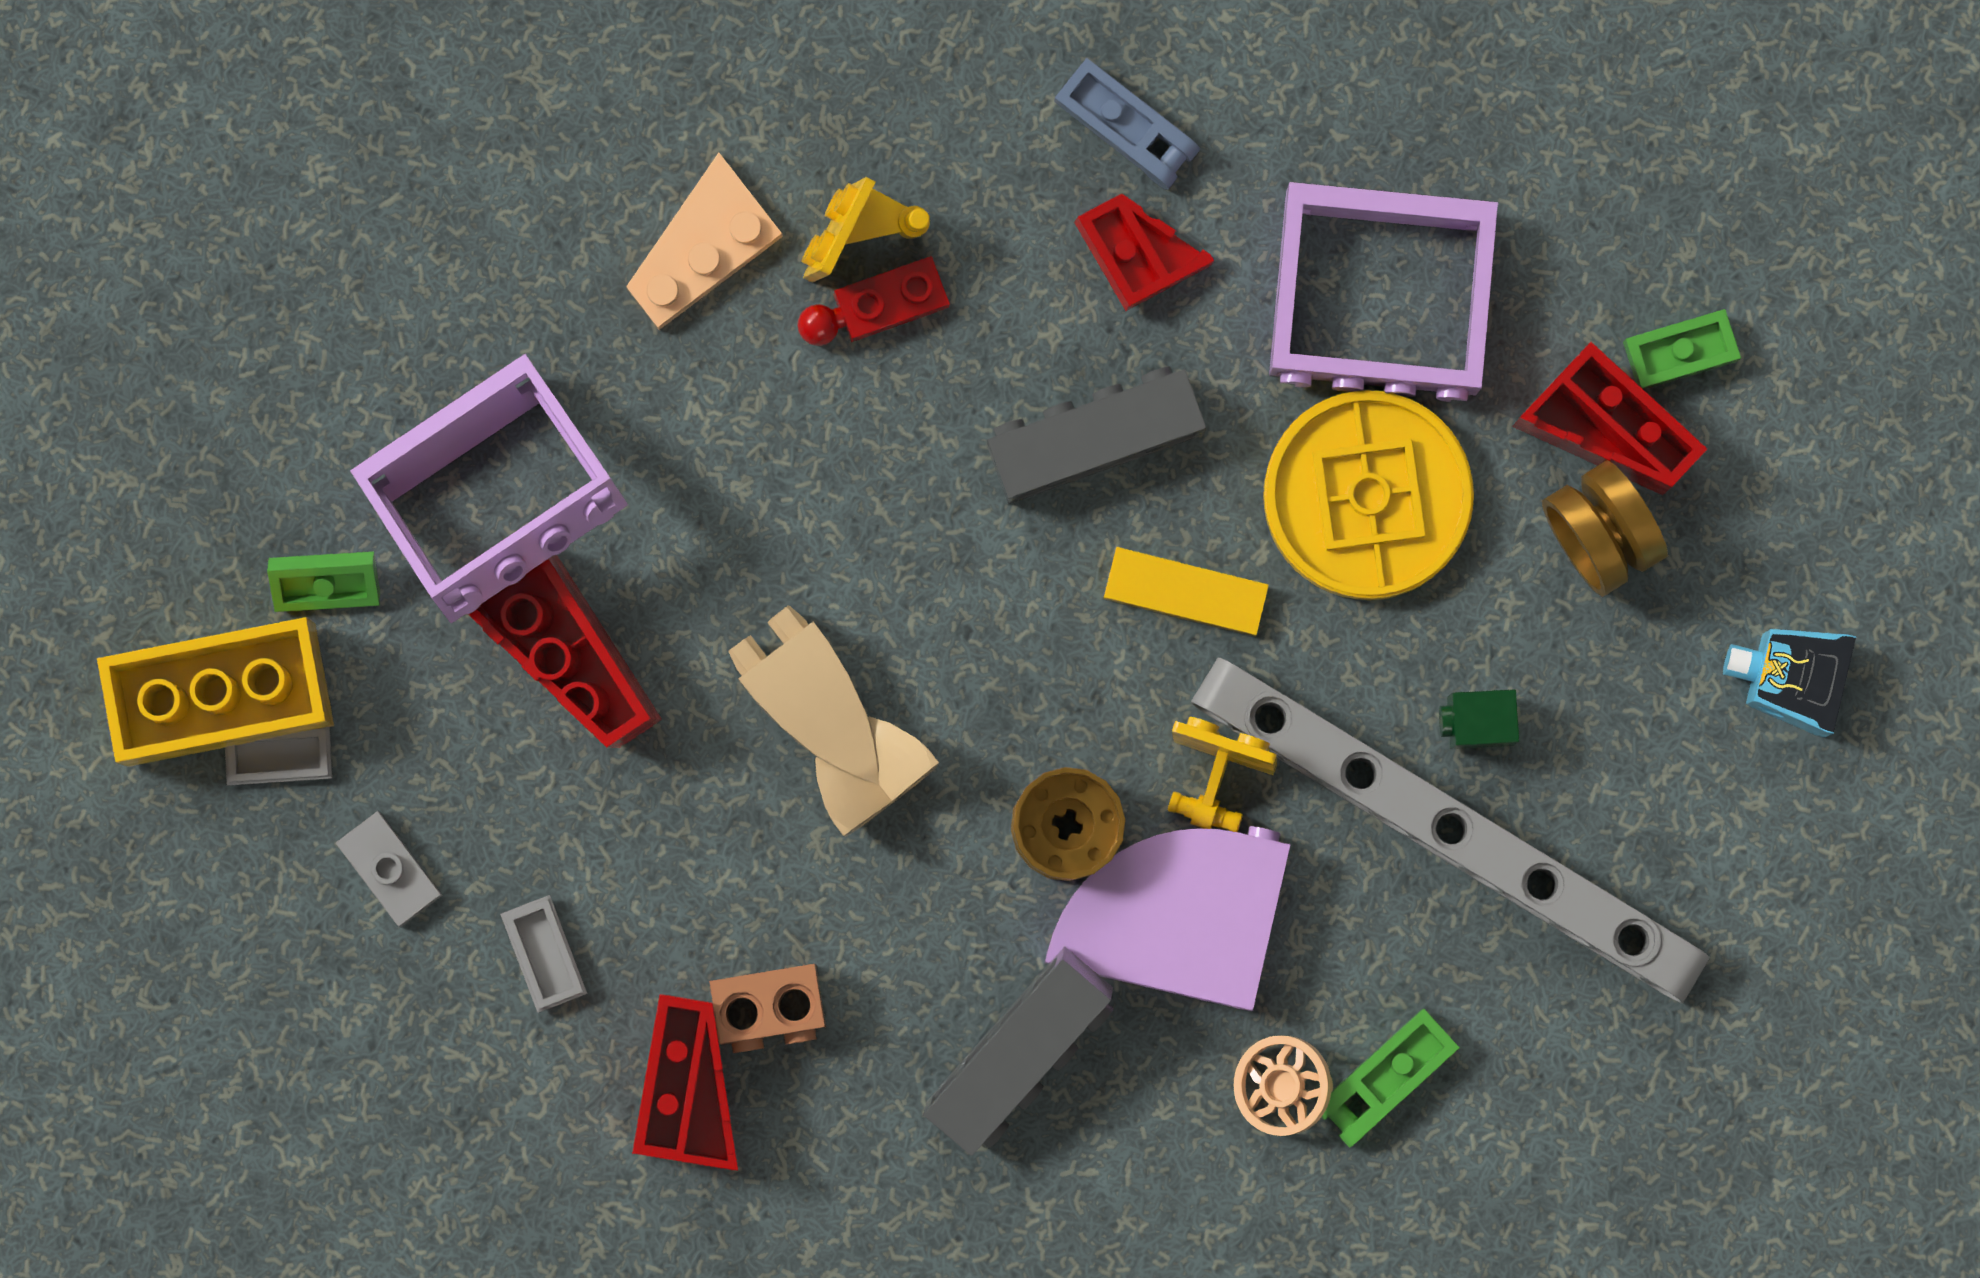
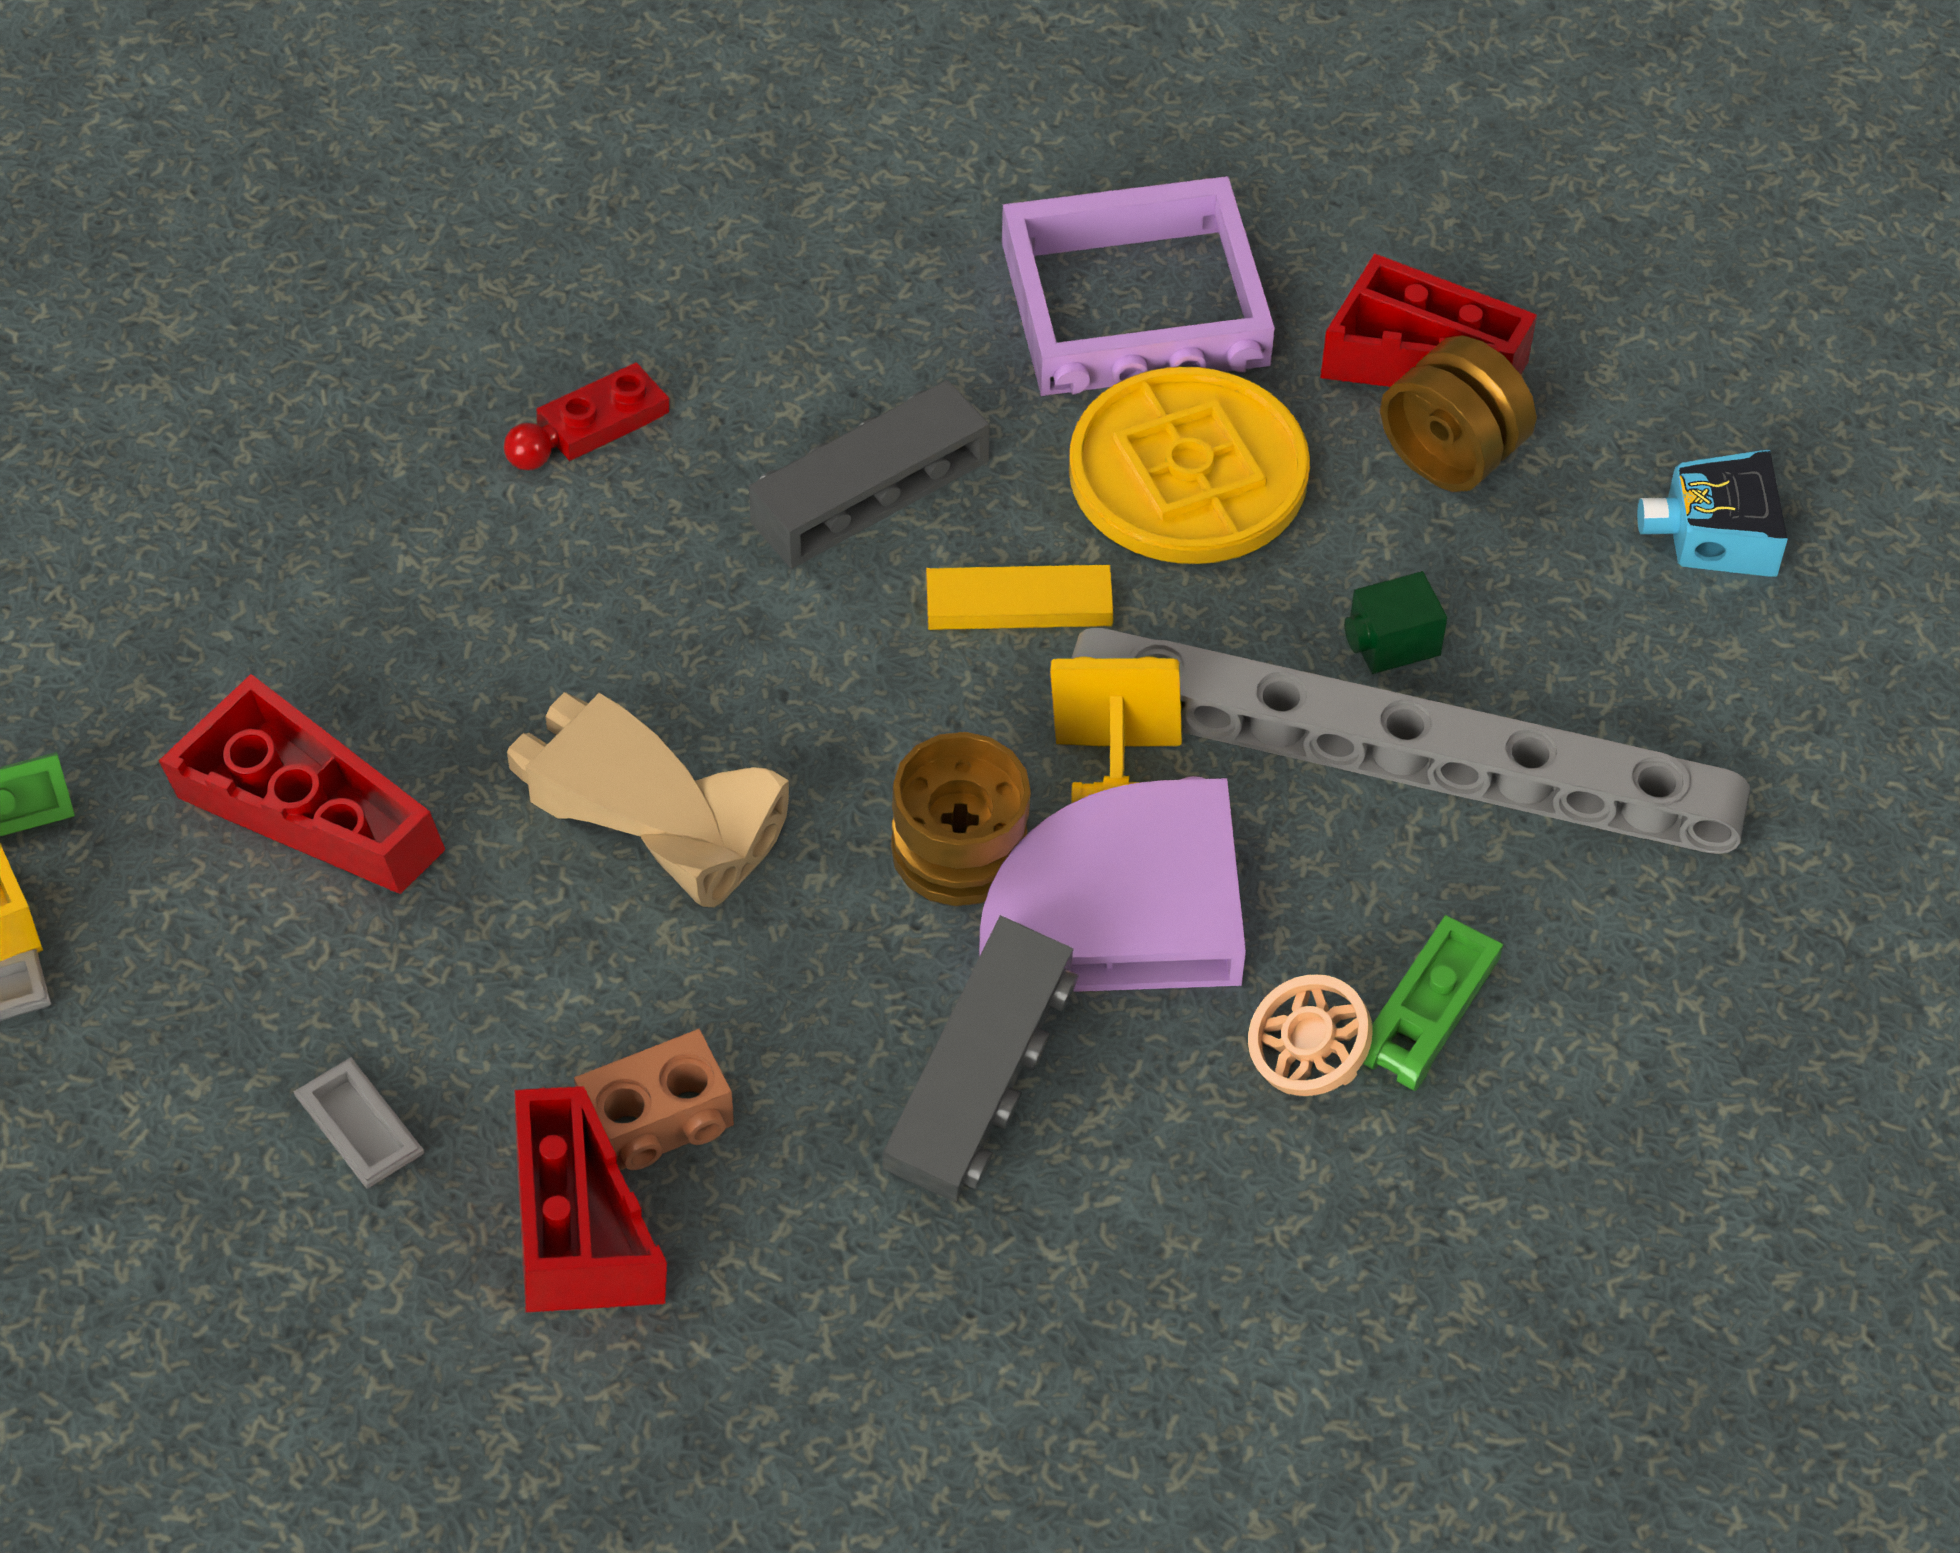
camera: 15 degrees left, 30 degrees down
(389, 869) = (142, 1081): light grey plate -> none
(452, 434) = (295, 610): lavender window -> none
(703, 245) = (378, 412): light nougat wing -> none
(858, 216) = (551, 329): yellow plate -> none
(1125, 122) = (813, 212): sand blue plate -> none
(1137, 251) = (860, 311): red wing -> none
(1682, 349) = (1484, 262): bright green plate -> none

